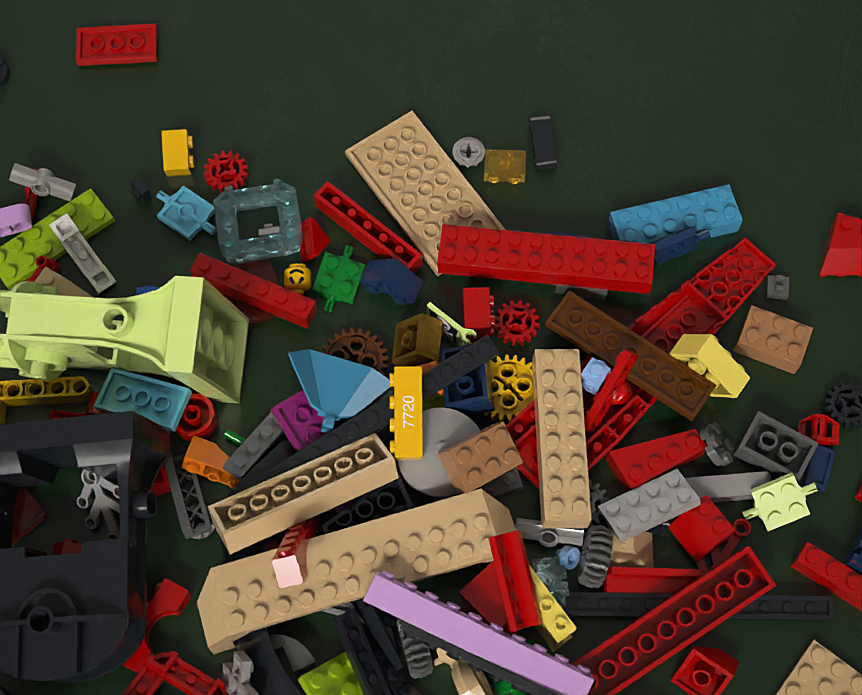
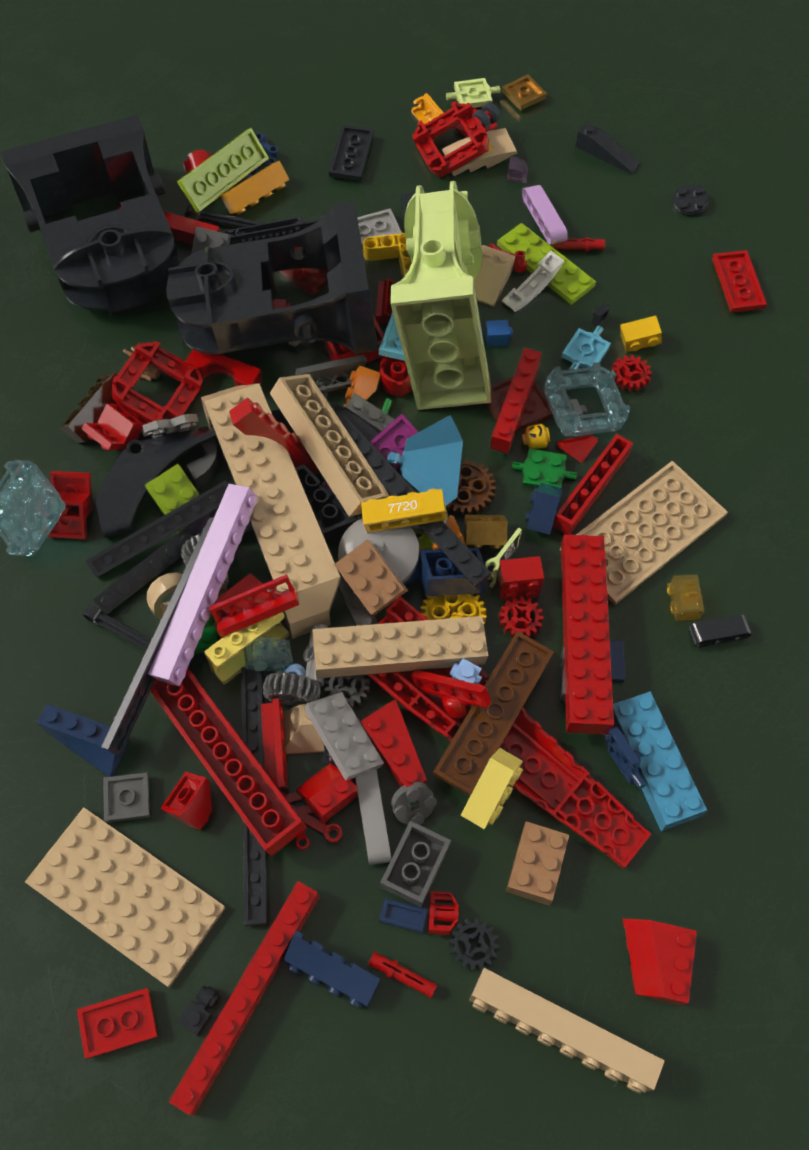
camera: 85 degrees right, 5 degrees down
(42, 182) = (591, 244): light grey piece -> none
(461, 147) = (700, 560): light grey gear -> none
(777, 287) = (601, 872): dark grey tile -> none
(780, 501) = (359, 867): yellowish green plate -> none

